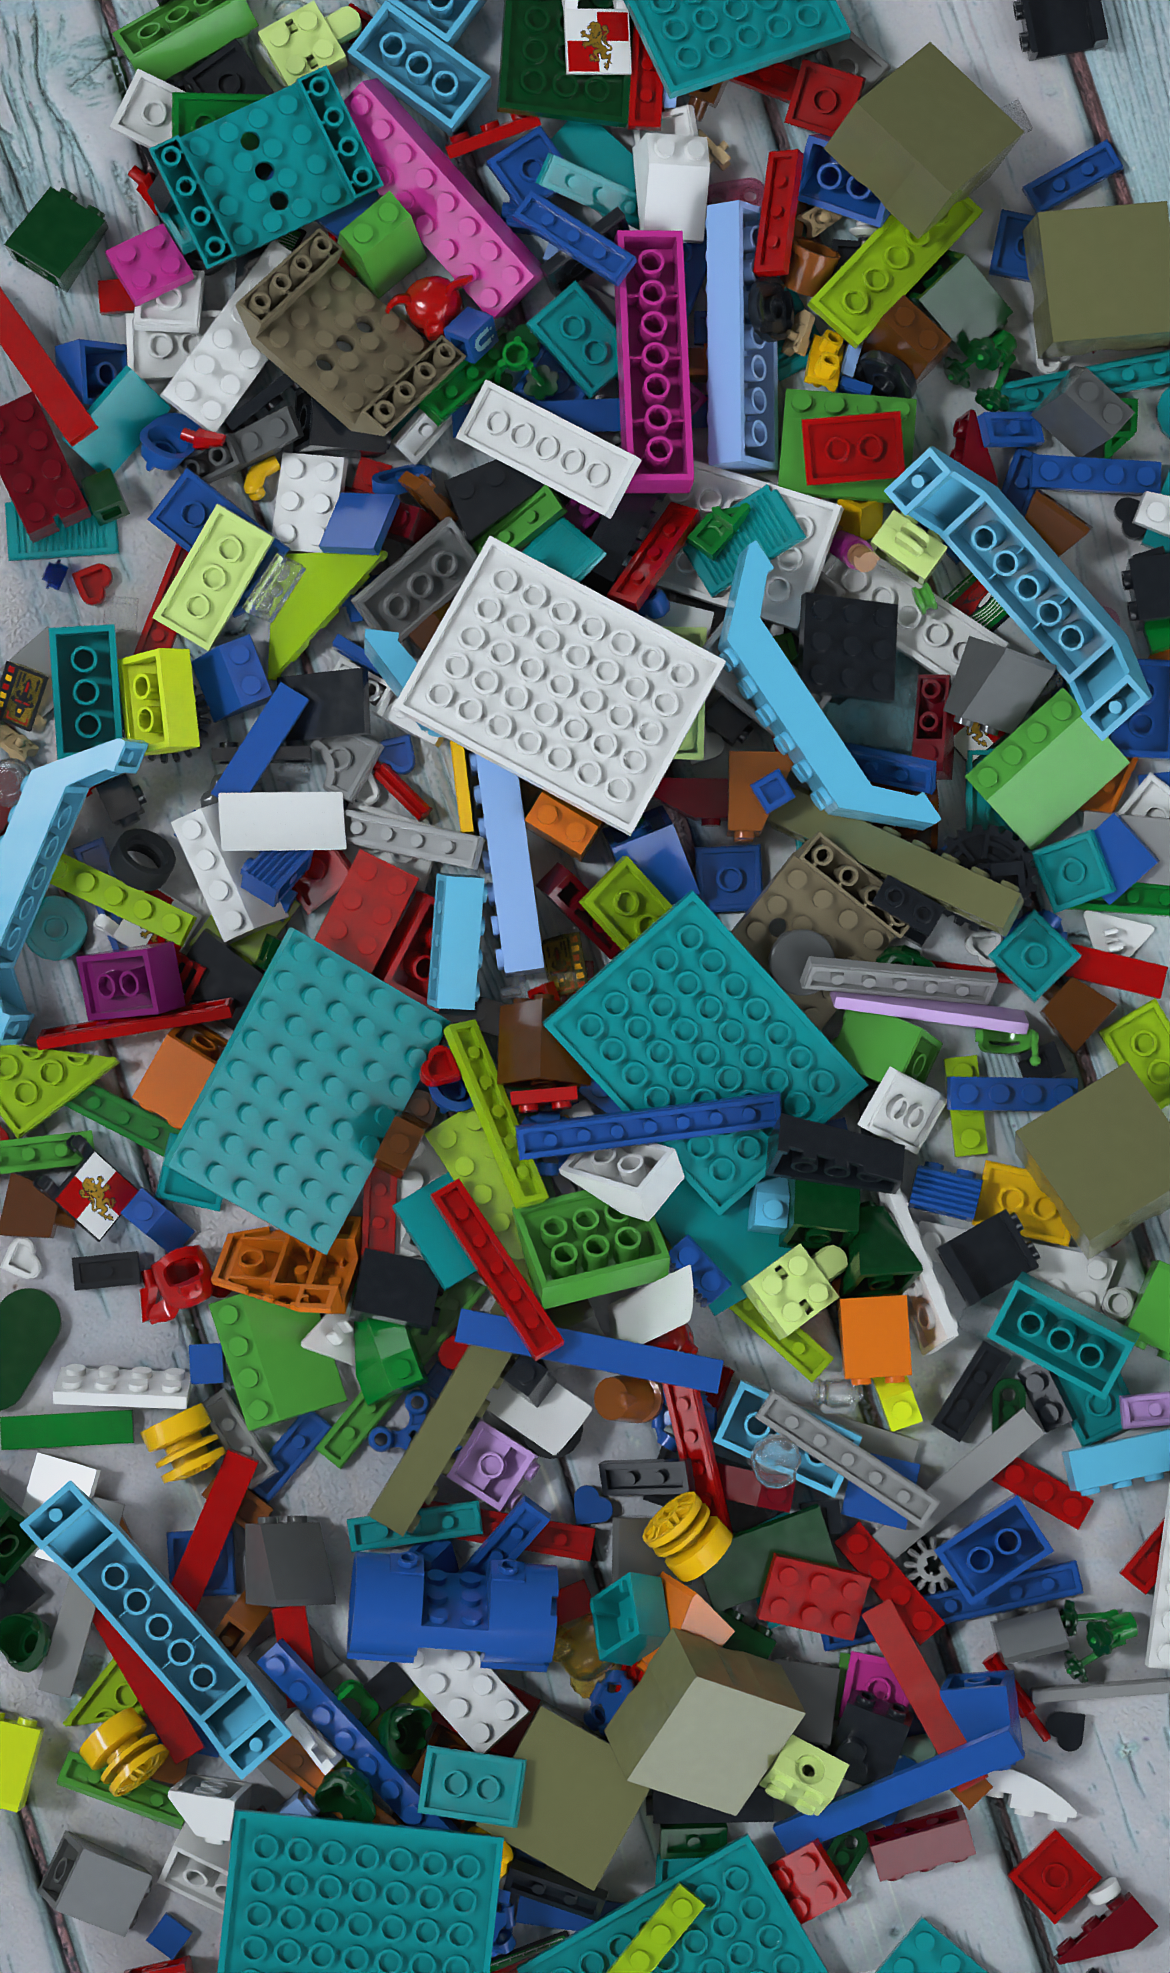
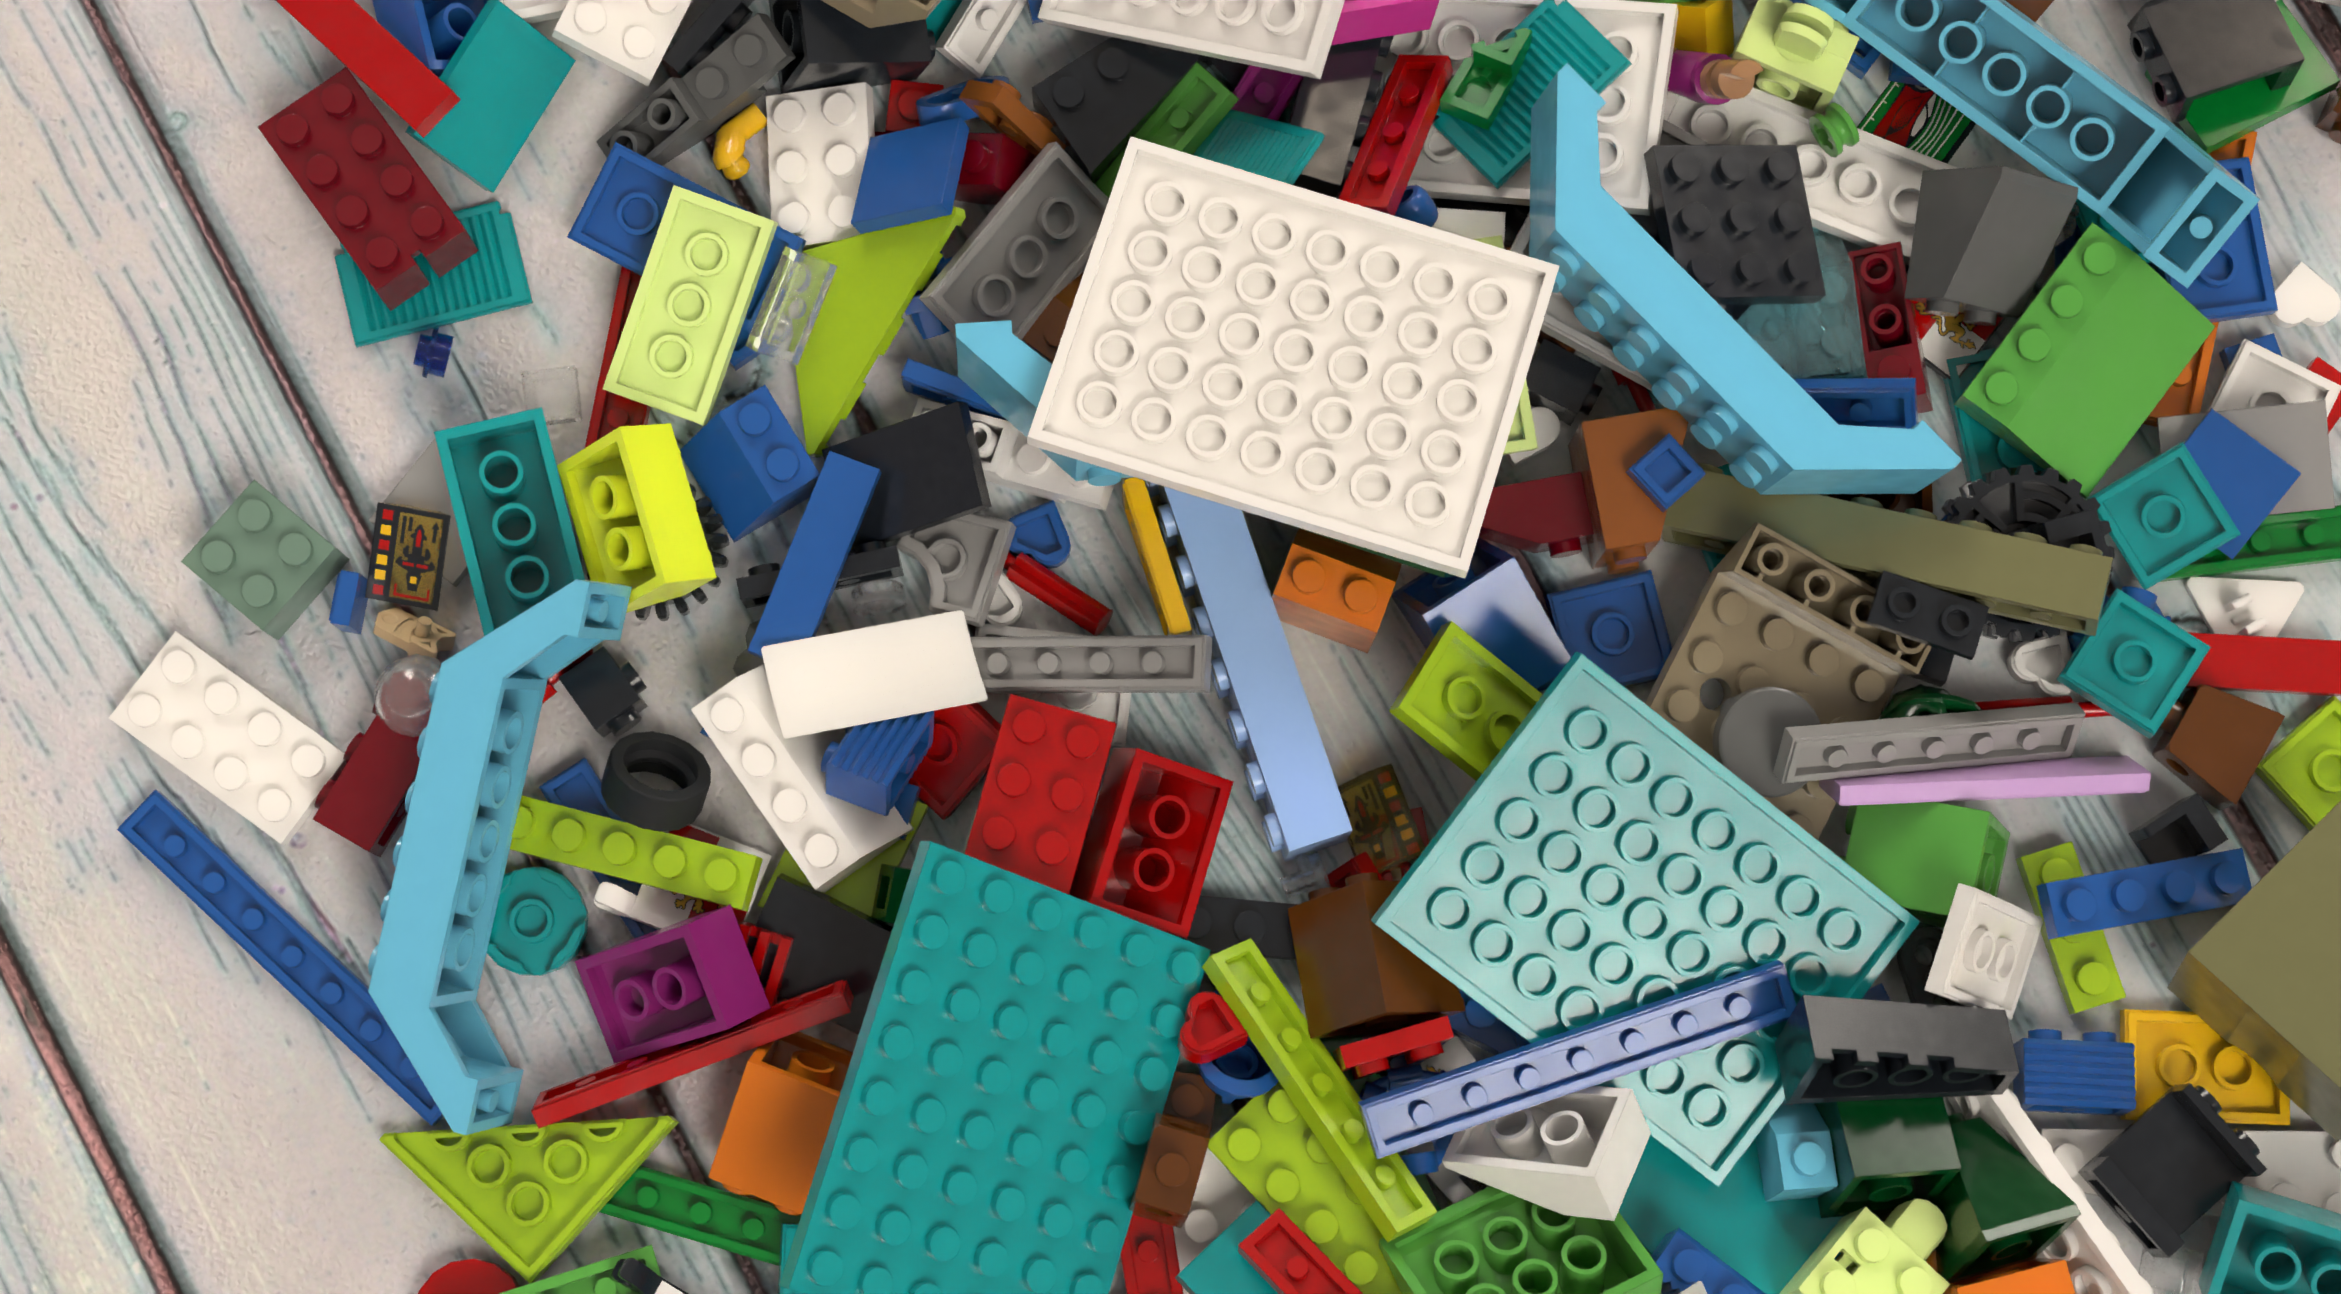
camera: 20 degrees left, 5 degrees down
(92, 583) = (498, 356): red tile -> none
(104, 496) = (492, 215): dark green panel -> none
(162, 442) = (580, 110): blue piece -> none
(202, 438) = (633, 92): red bar -> none
(456, 941) = (1197, 816): medium azure brick -> none
(565, 893) = (1360, 708): dark red slope -> none
(1026, 1043) = (2143, 809): bright green helmet -> none

